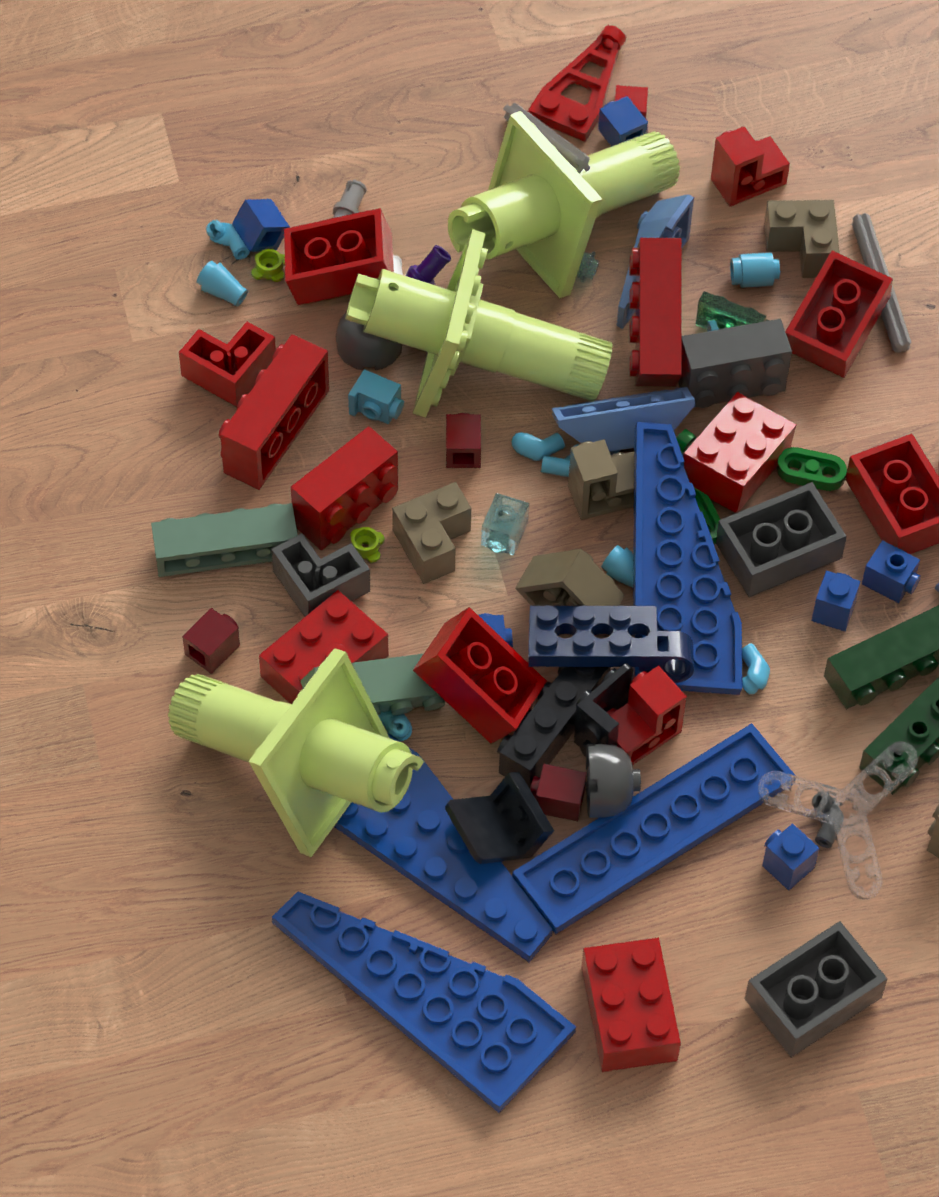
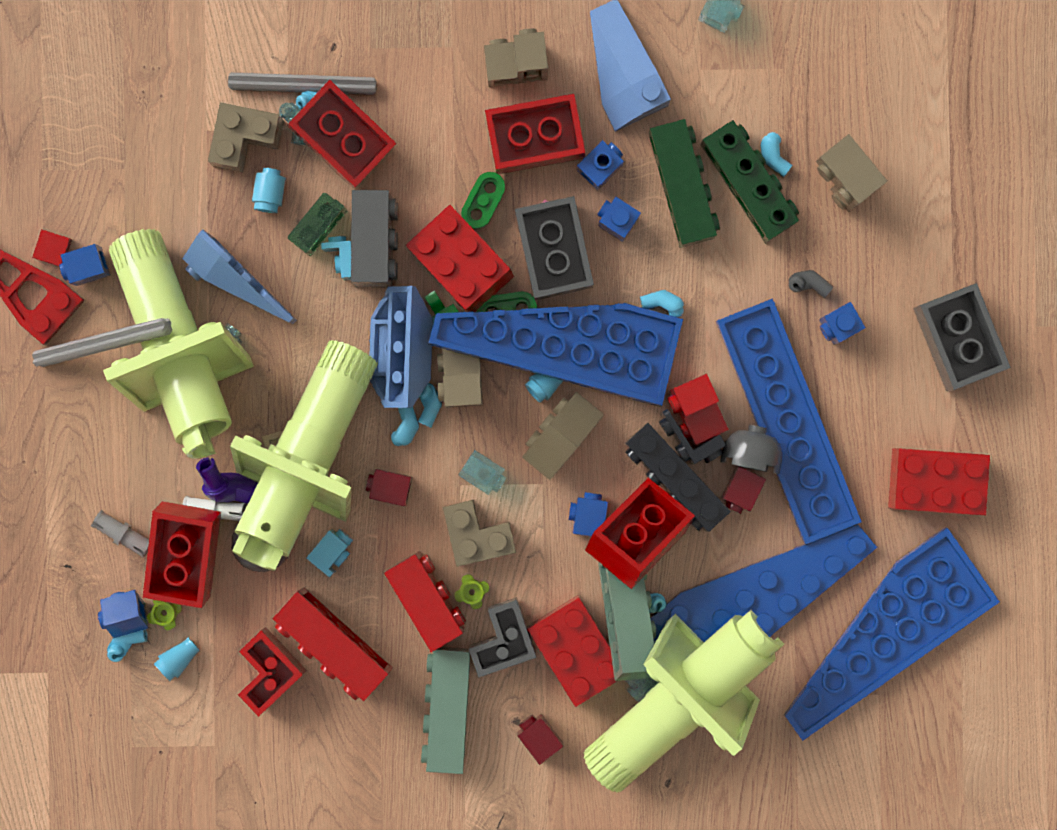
camera: 70 degrees left, 30 degrees up
(501, 825) = (764, 546): black bracket -> none
(658, 312) = (316, 293): red brick -> none
(659, 648) = (655, 382): dark blue hinge -> none
(747, 166) = (156, 165): red brick -> none
(862, 802) = (815, 255): clear piece -> none

